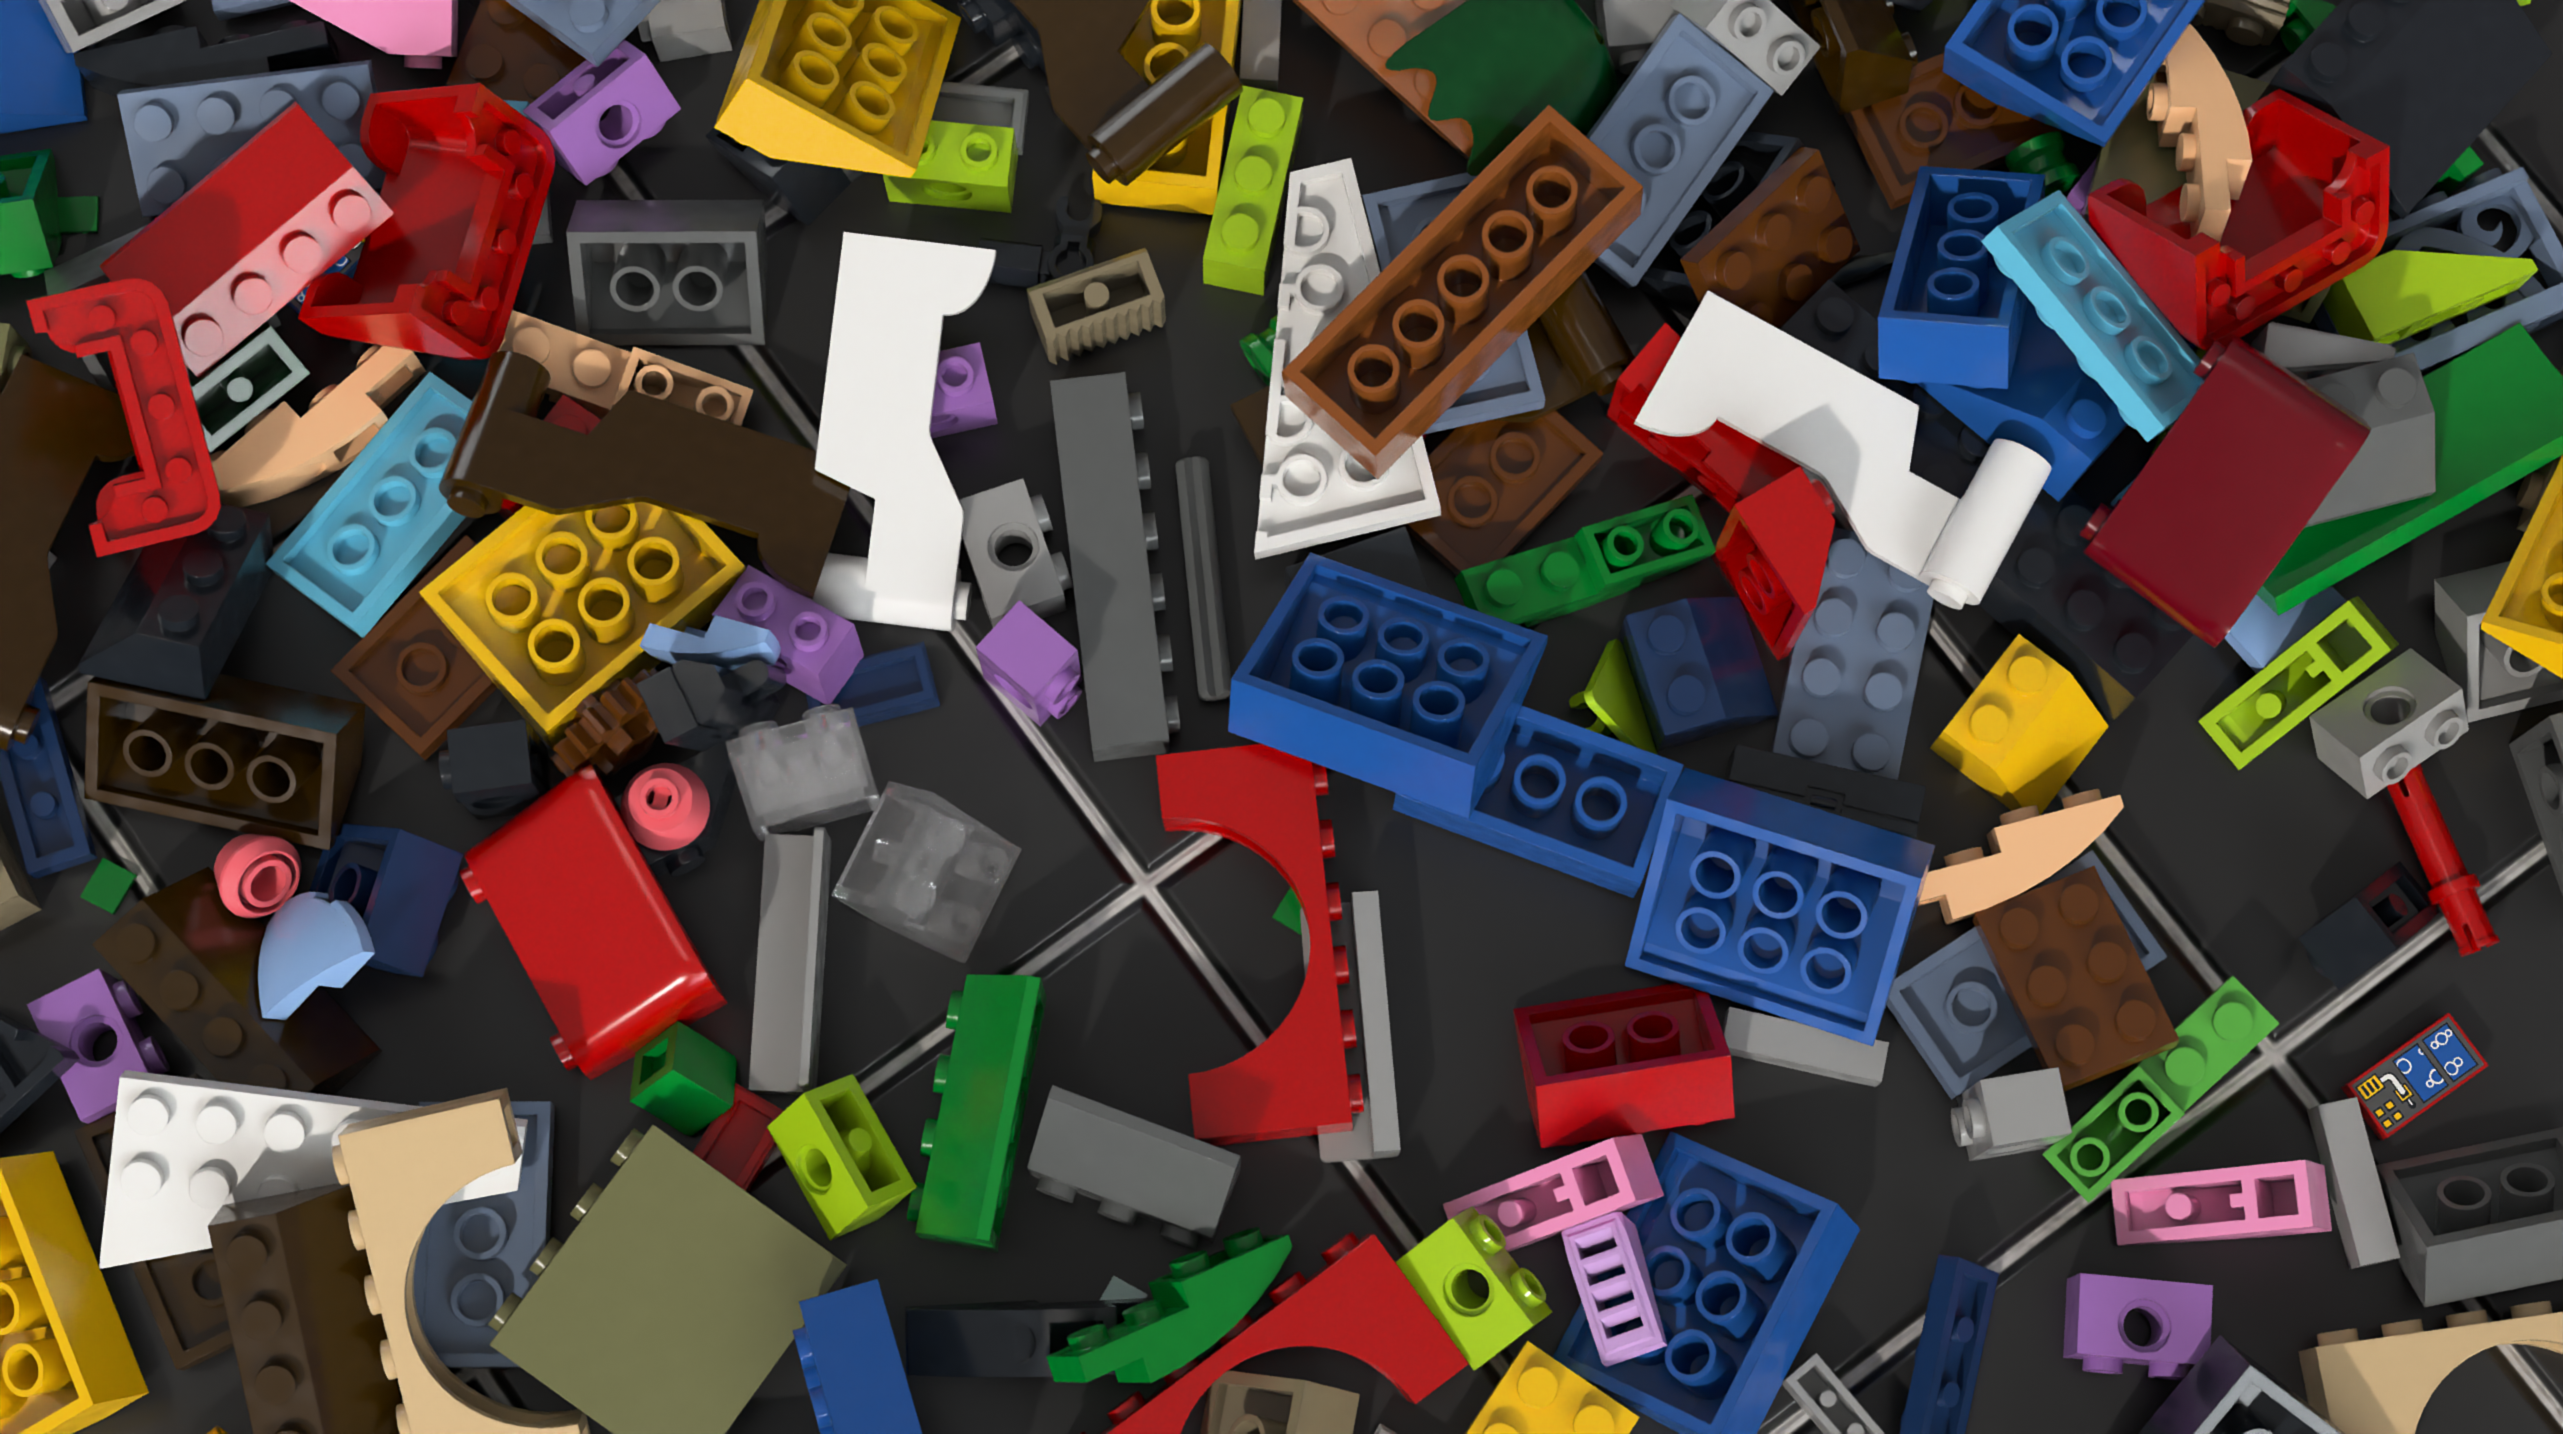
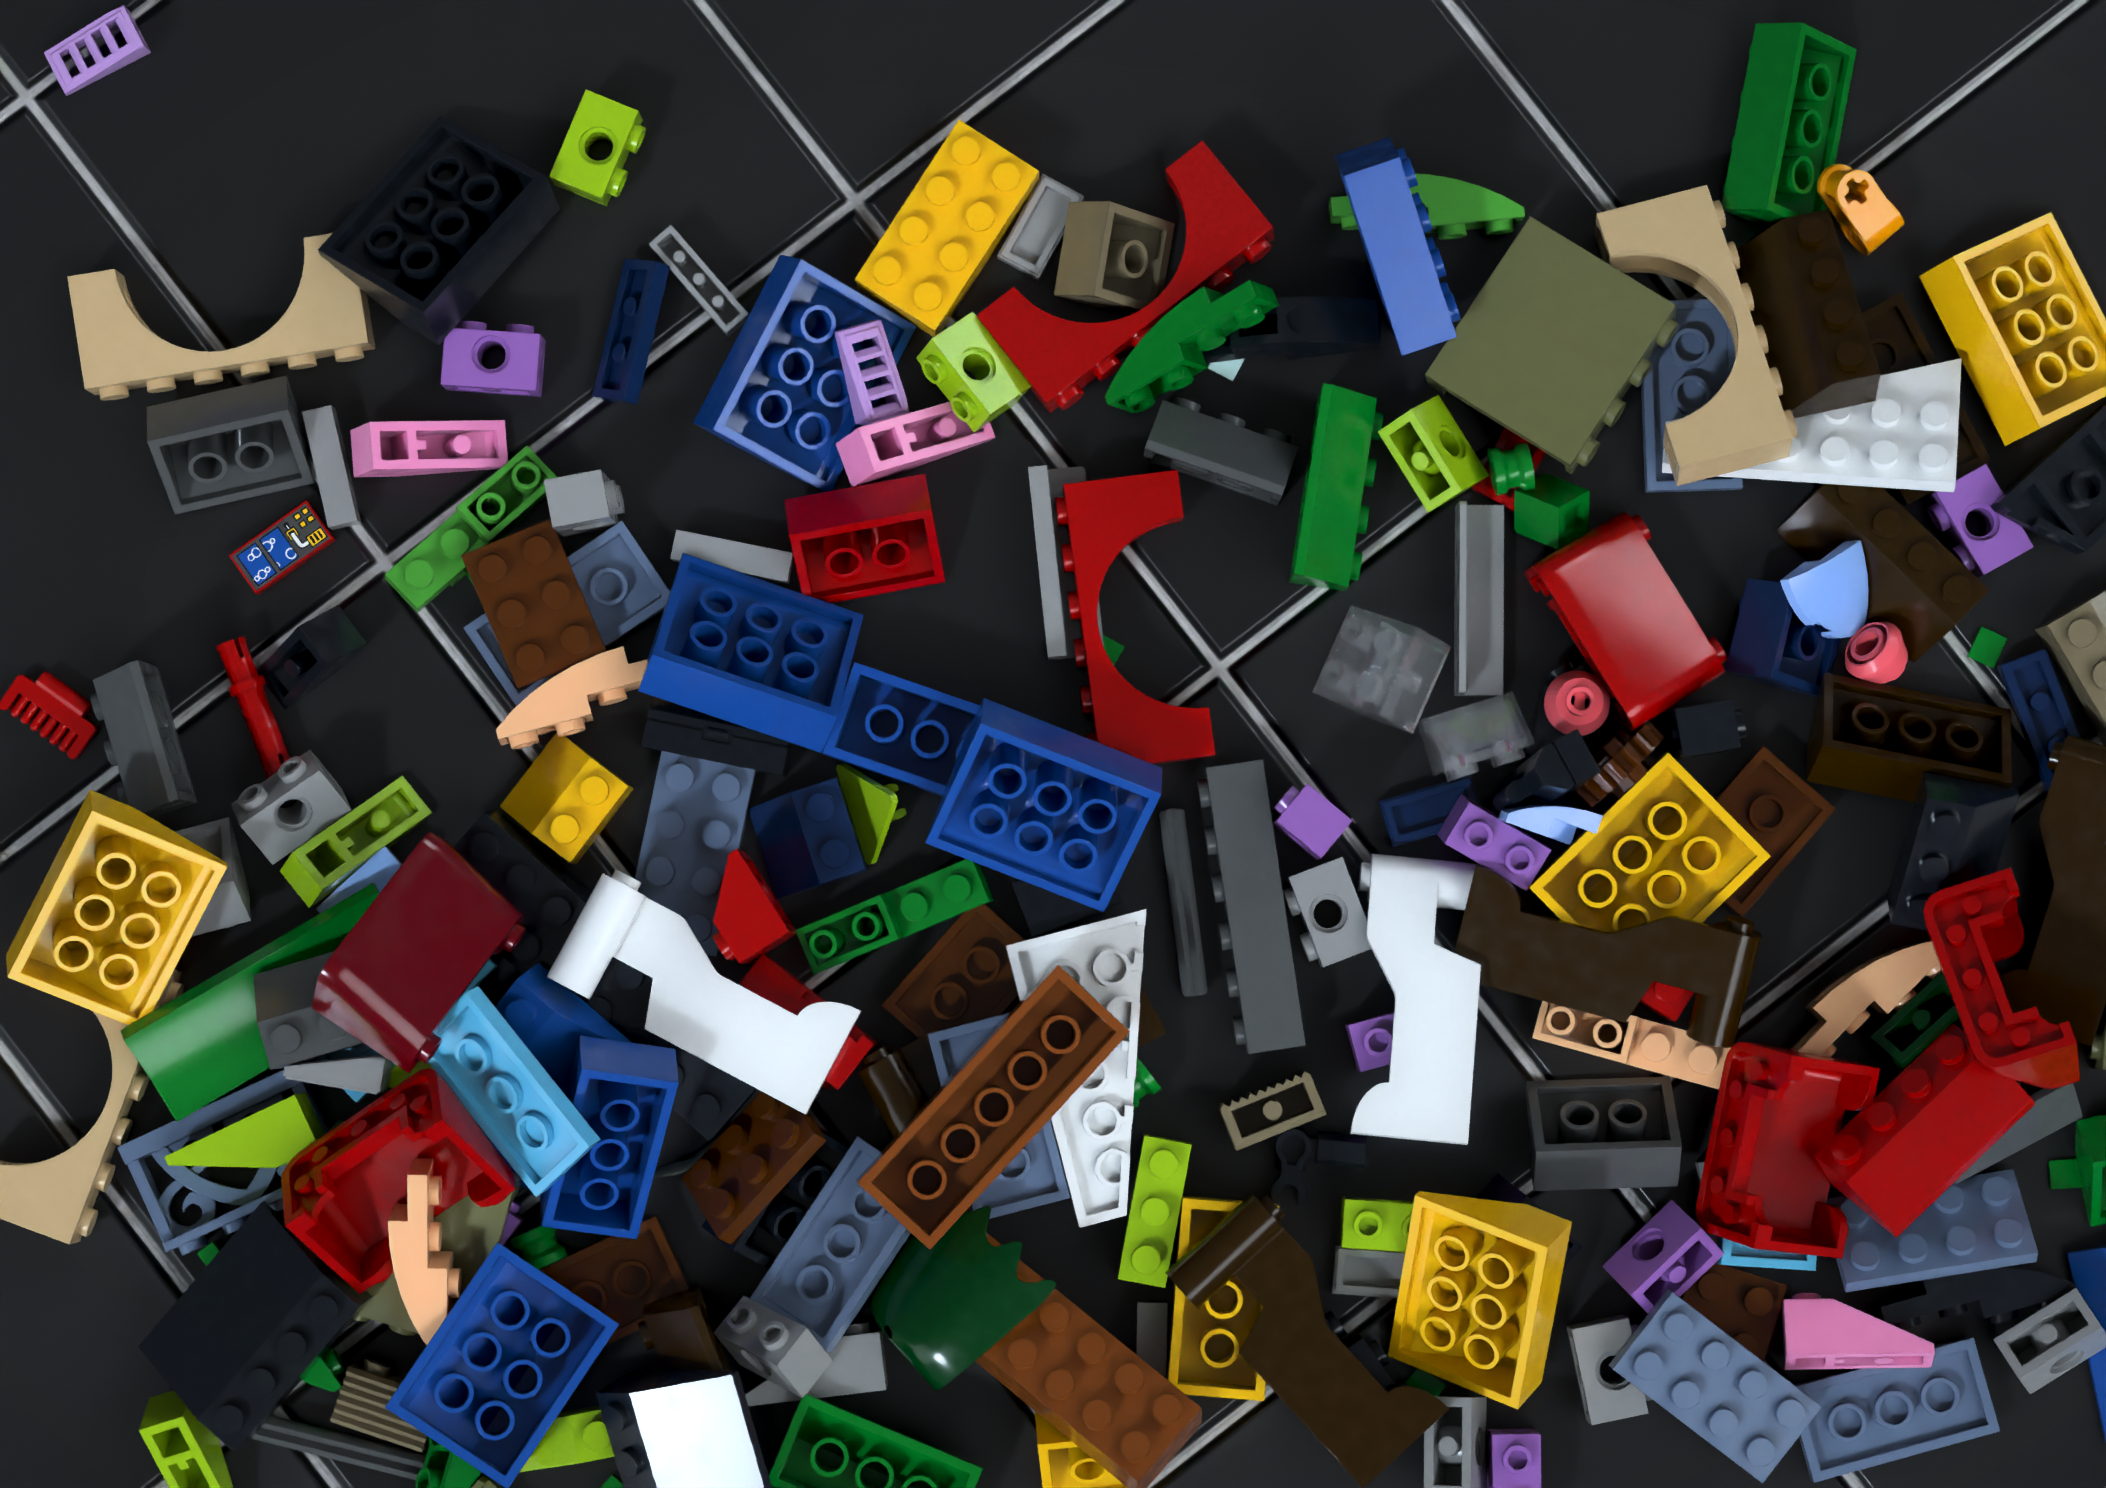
camera: 175 degrees left, 10 degrees up
(380, 514) = (1806, 934): medium azure plate -> none
(735, 1131) = (1511, 468): none -> green wheel

